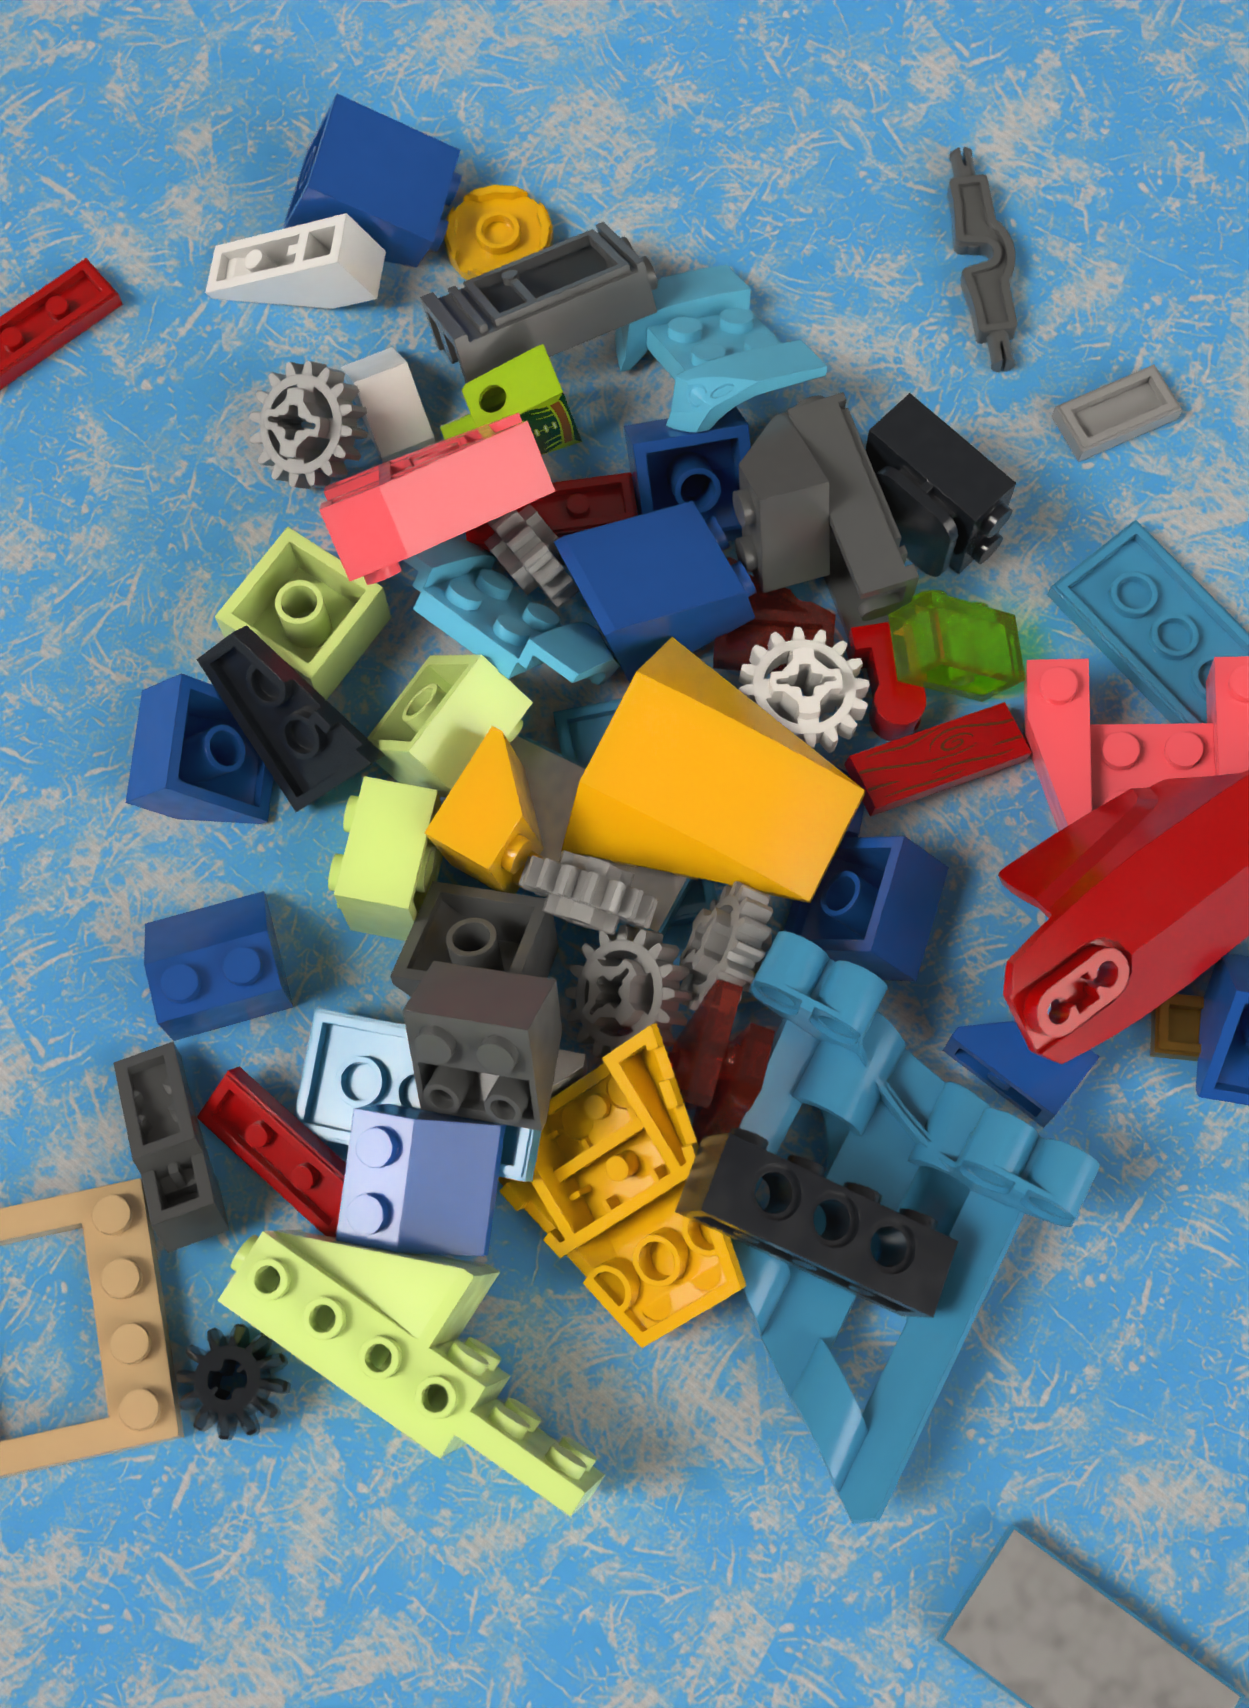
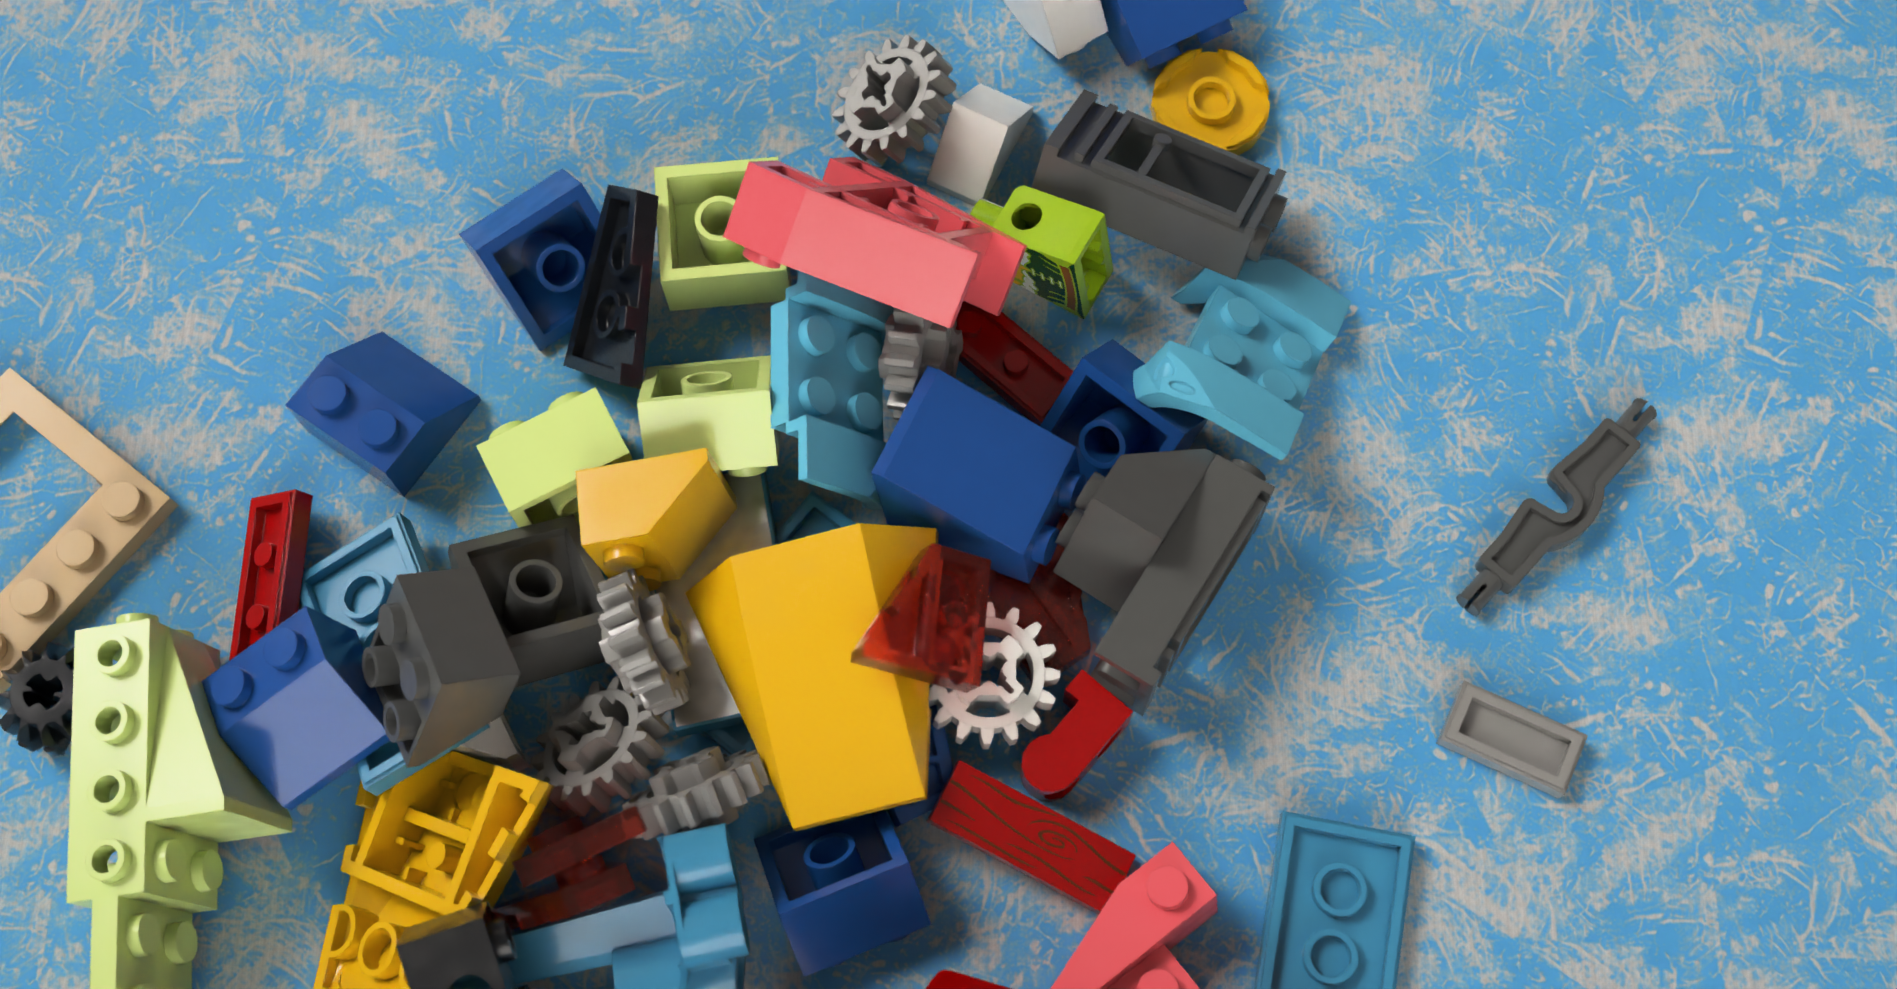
camera: 50 degrees right, 0 degrees up
(169, 1148) = (205, 498): dark grey slope -> none
(748, 681) = (932, 621): none -> clear red wing
(938, 489) = (1270, 636): black brick -> none
(956, 646) = (1139, 770): clear neon green brick -> none

